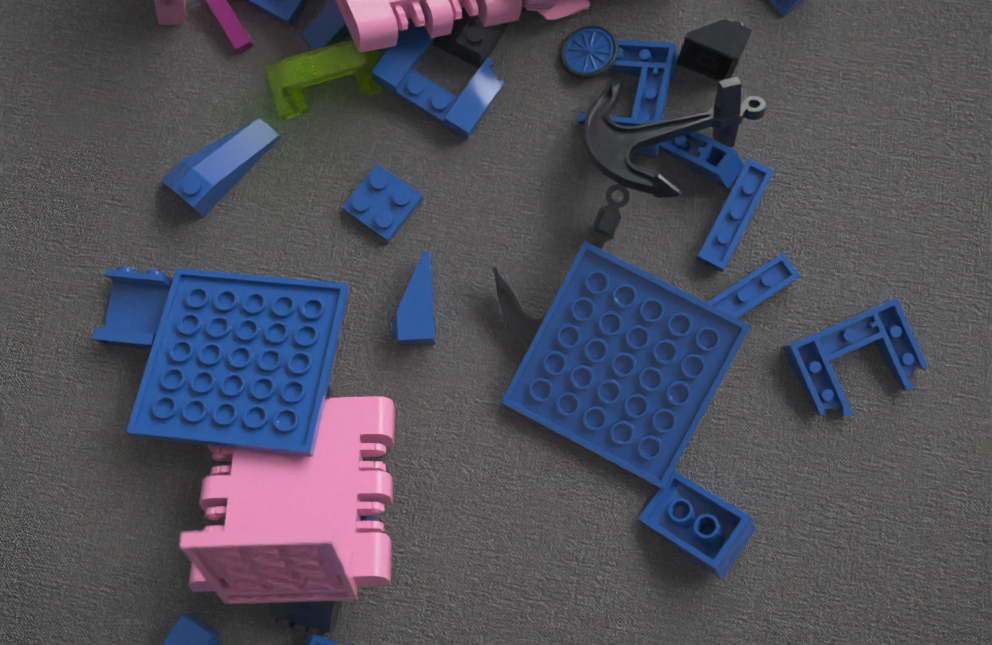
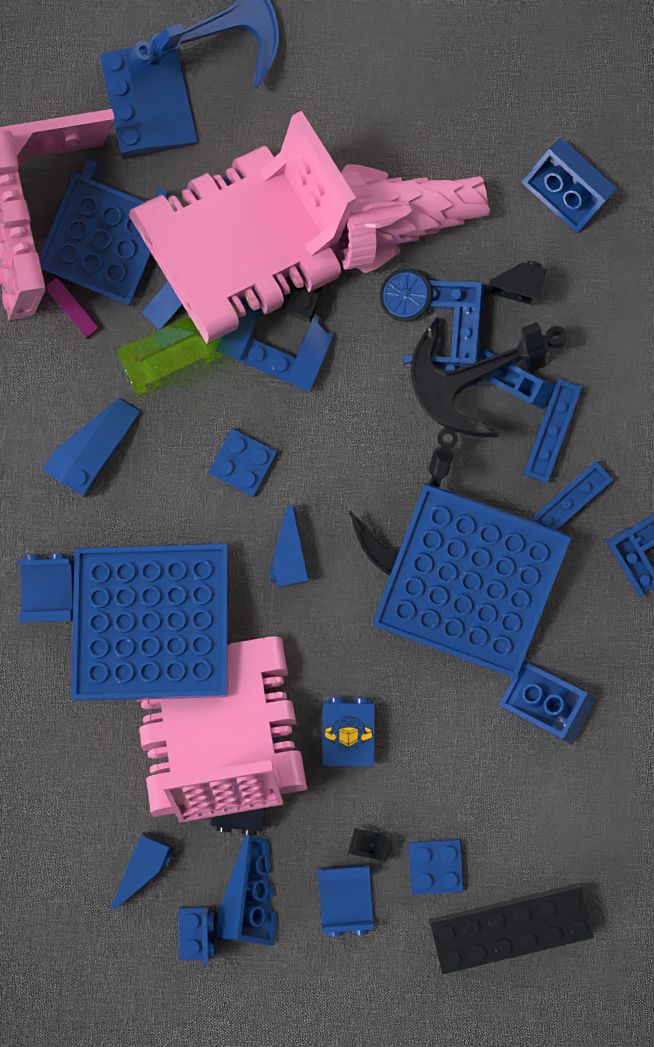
camera: 10 degrees left, 10 degrees up
(453, 525) = (348, 732): none -> blue panel

